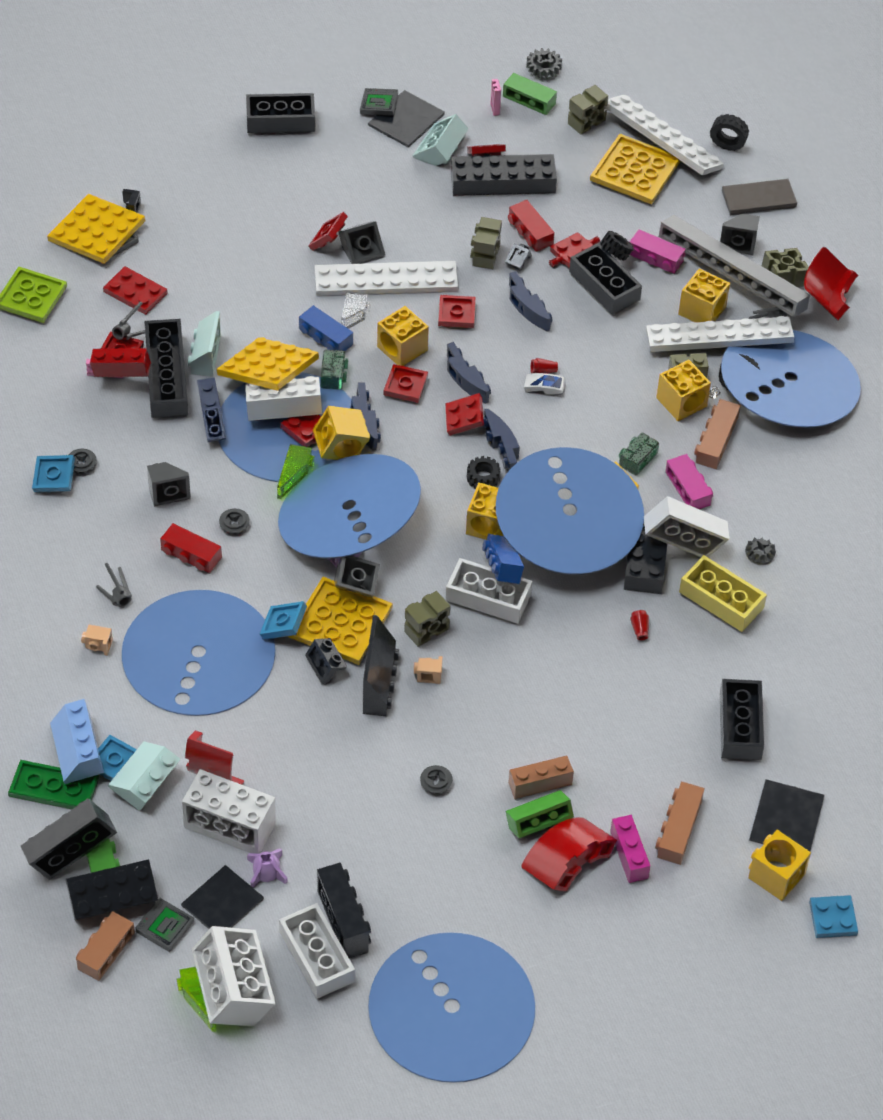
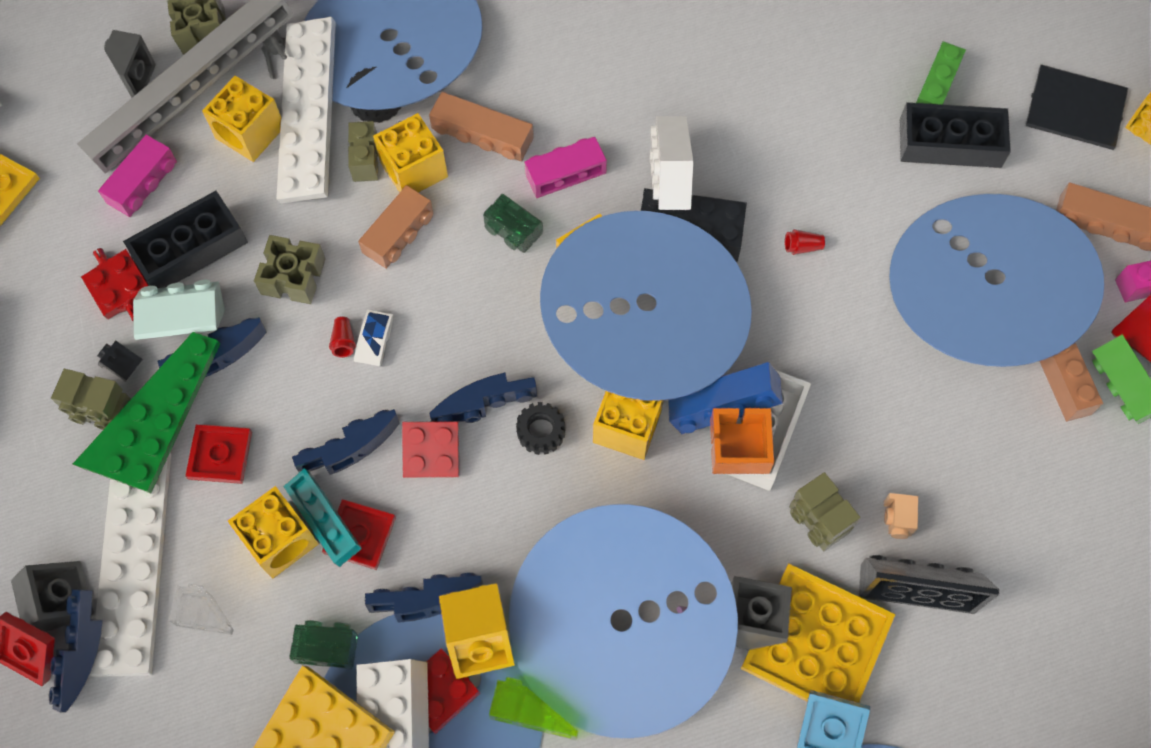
camera: 85 degrees left, 15 degrees up
(322, 255) = (74, 664): none -> dark blue slope
(325, 329) = (238, 658): blue brick -> none
(325, 659) = (898, 663): black bracket -> none
(414, 359) = (322, 517): none -> teal plate
(430, 773) = (1091, 506): dark grey gear -> none
(466, 269) = (144, 431): none -> green wing
(471, 563) = (743, 446): none -> orange piece
(531, 225) = (58, 339): brick -> none
(552, 277) = (177, 309): none -> light aqua slope
(580, 741) = (1039, 309): none -> medium blue piece
(589, 333) = (289, 269): none -> olive brick
(616, 245) = (130, 218): black tyre -> none
(630, 389) = (396, 227): none -> nougat brick
(722, 593) = (756, 139): light yellow brick -> none
(757, 555) = (667, 104): dark grey gear -> none
(759, 196) = (49, 46): tile -> none
(793, 716) = (941, 74): none -> bright green brick

